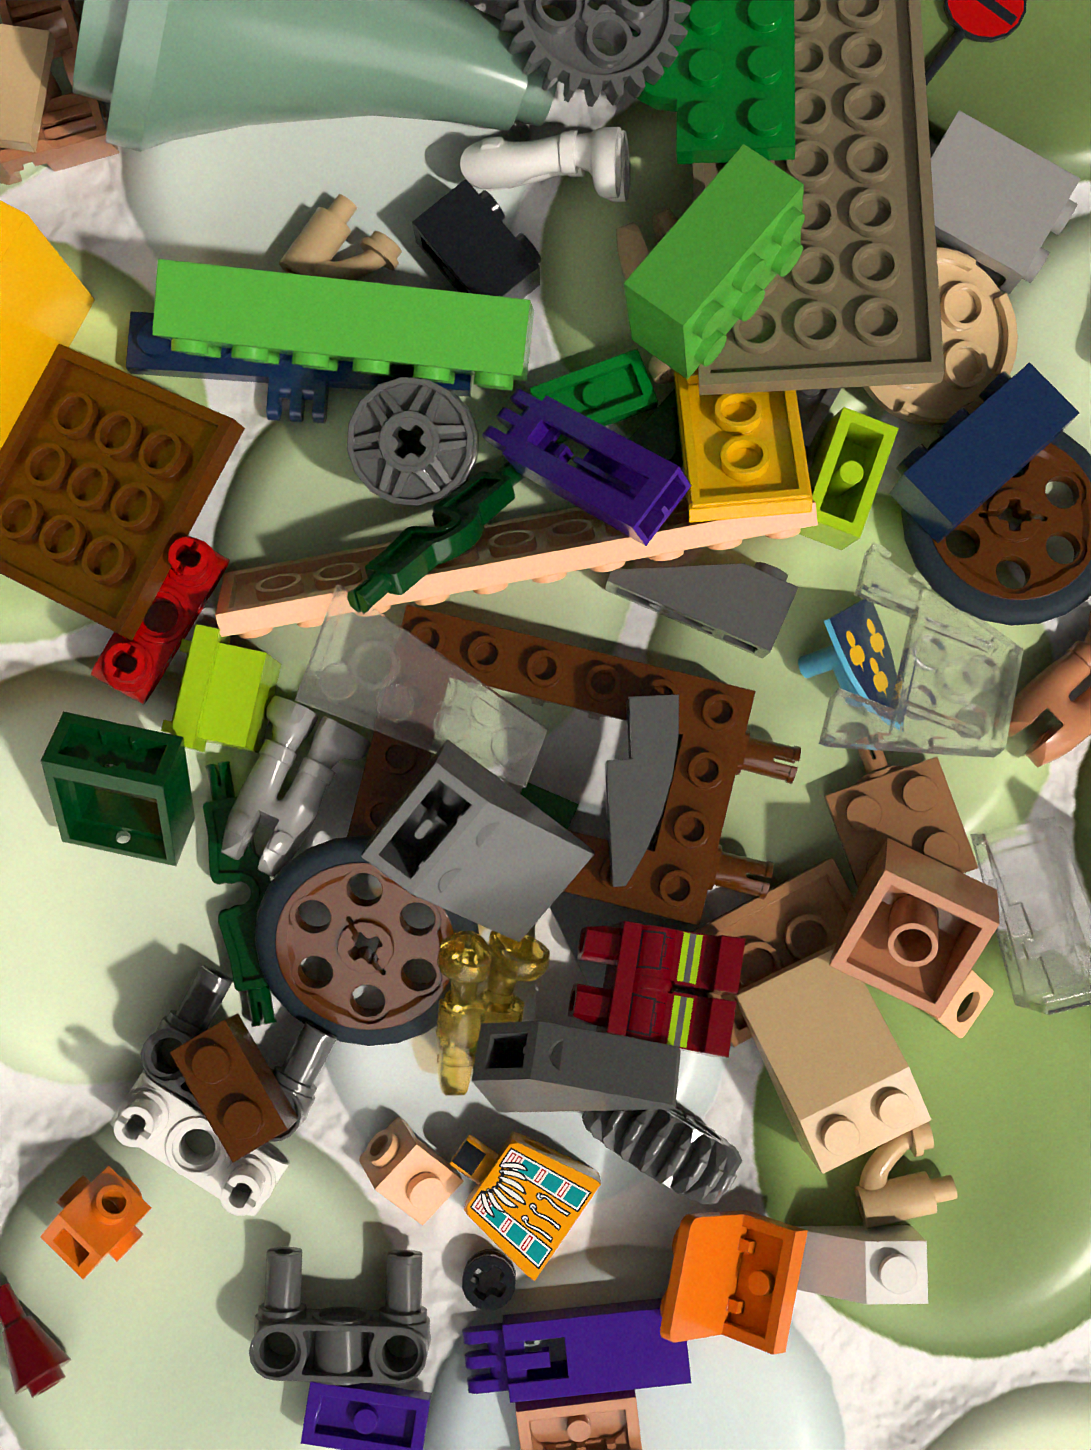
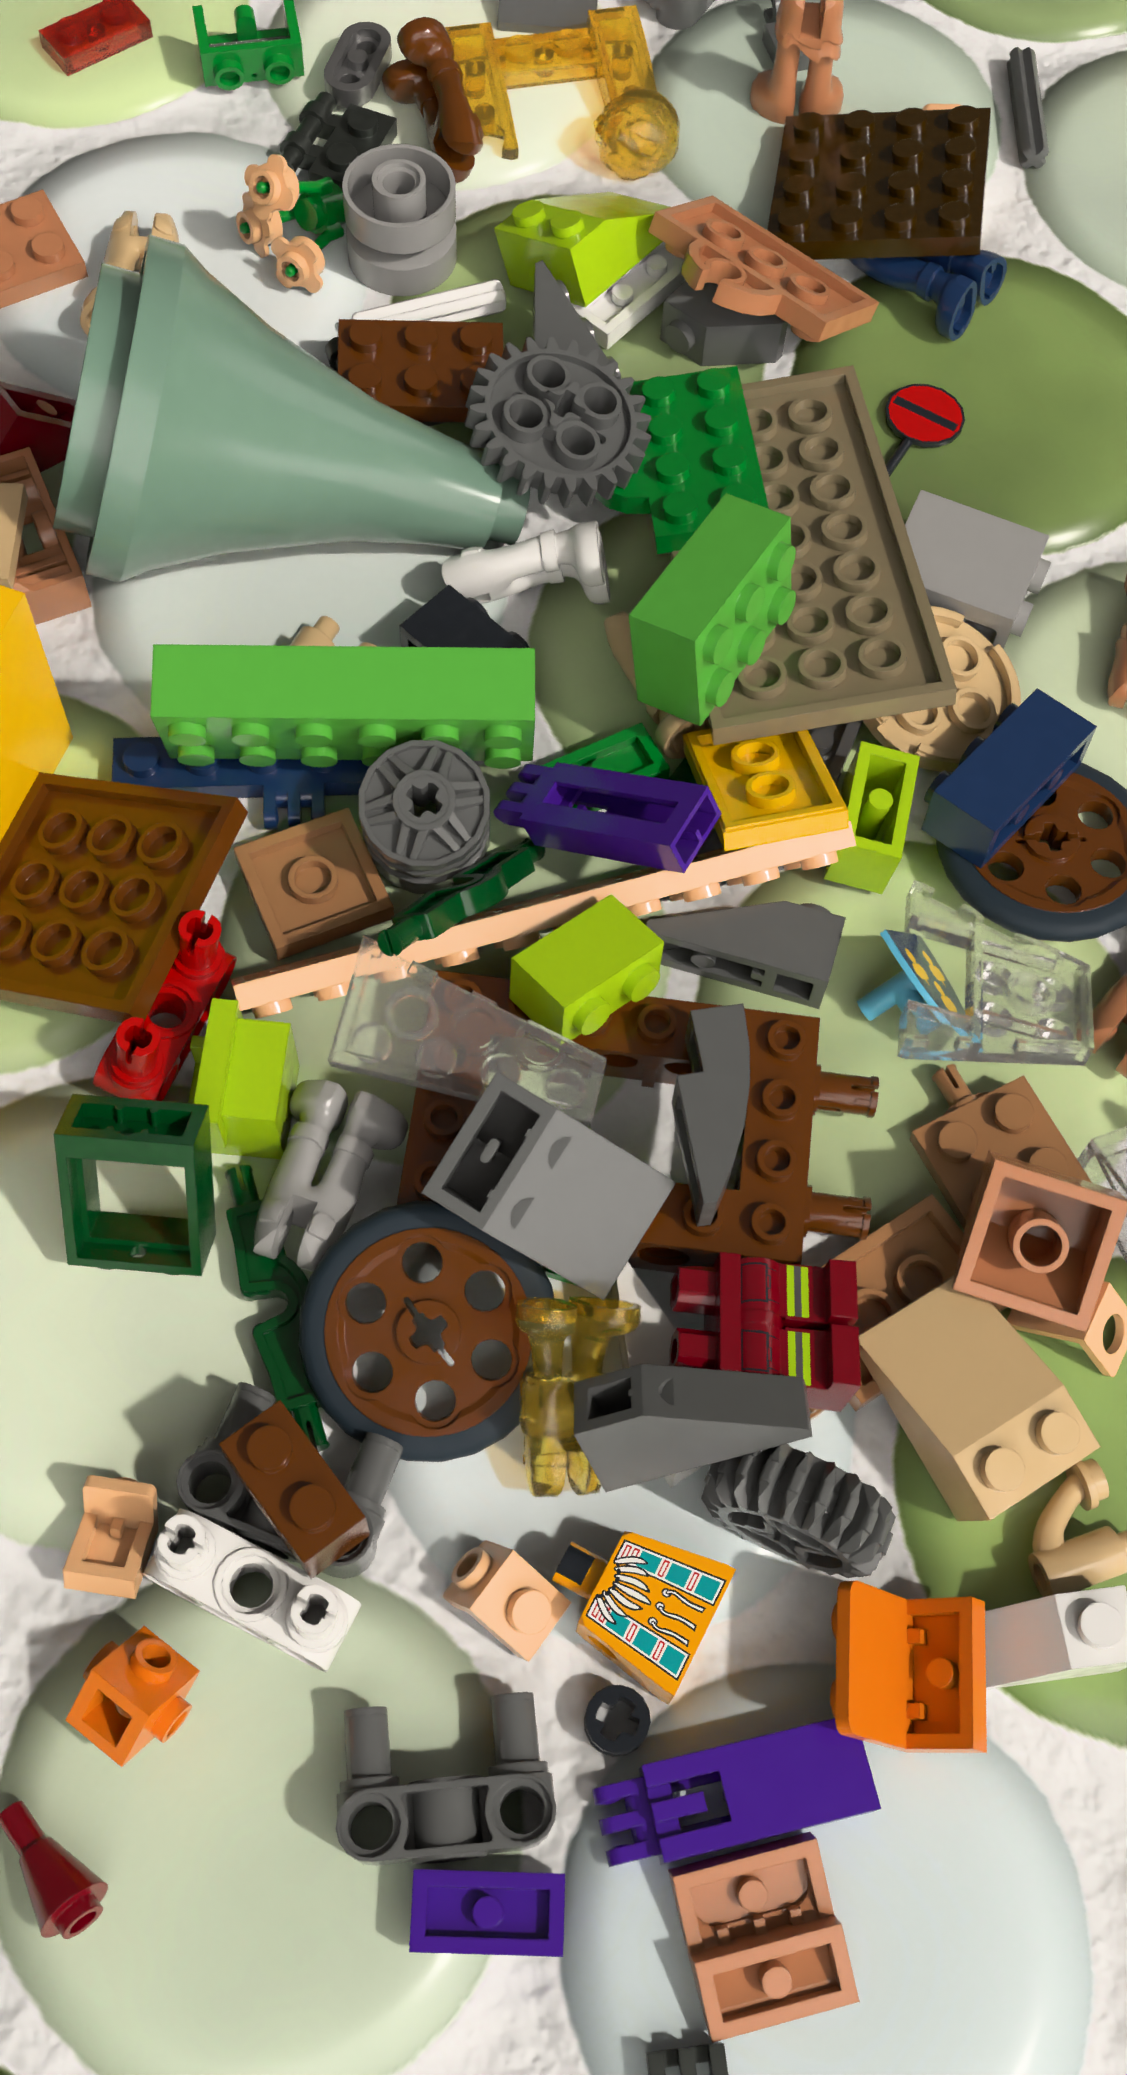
camera: 10 degrees left, 20 degrees down
(88, 1086) = (113, 1537): none -> light nougat bracket
(305, 487) = (313, 883): none -> medium nougat plate
(542, 634) = (586, 969): none -> lime brick

